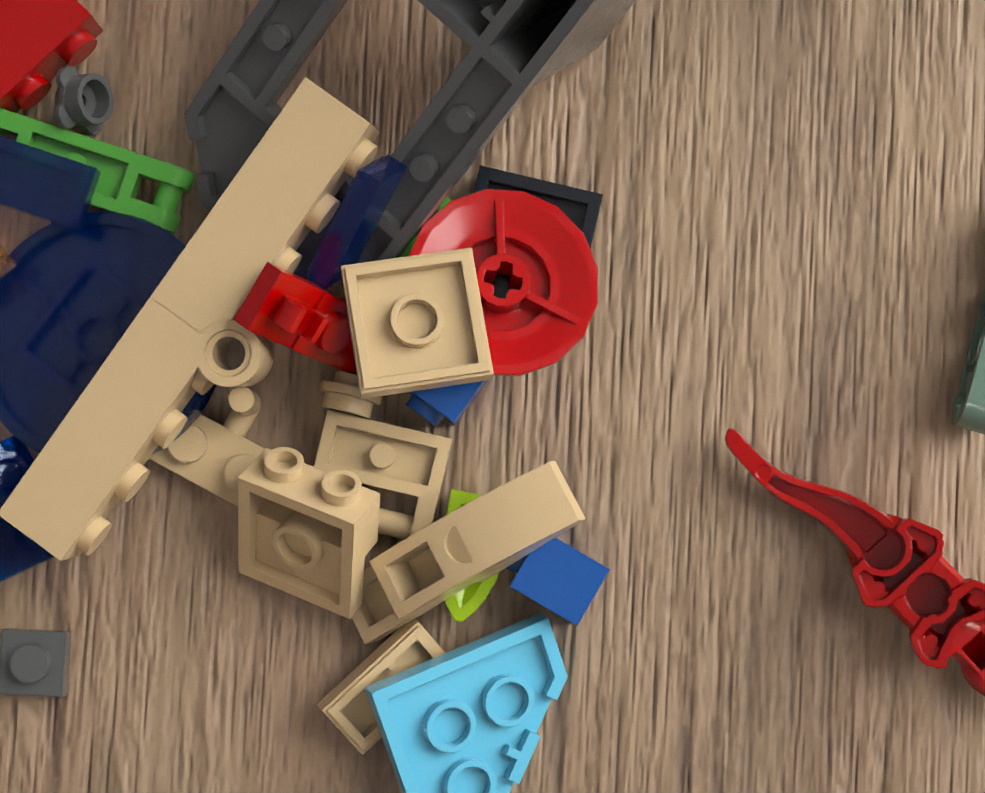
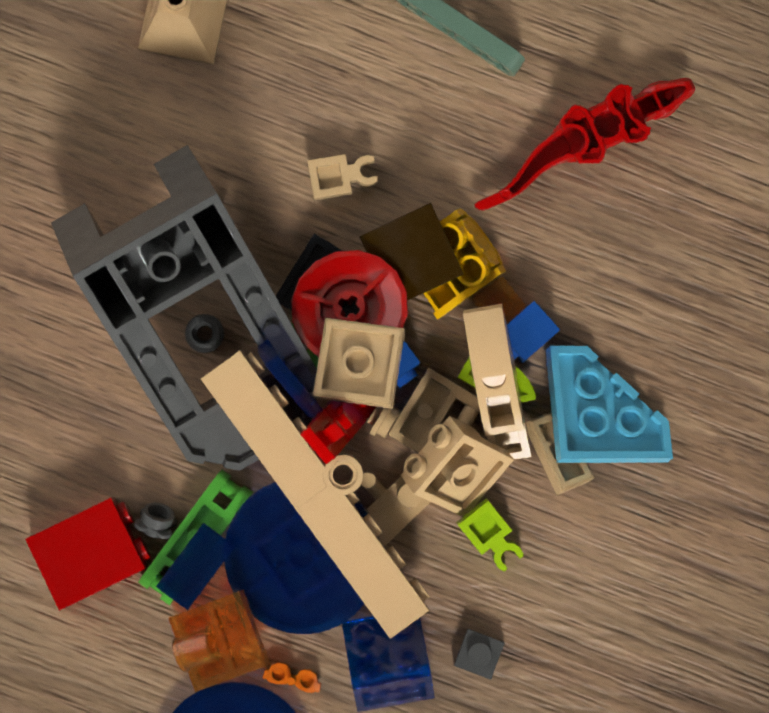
camera: 70 degrees left, 0 degrees up
(228, 614) = (487, 530): none -> lime plate
(394, 62) = (196, 324): none -> dark grey plate
(602, 513) = (500, 293): none -> clear orange plate
(626, 357) = (416, 250): none -> dark brown slope
(630, 421) = (476, 258): none -> yellow slope
(702, 198) = (333, 177): none -> tan plate

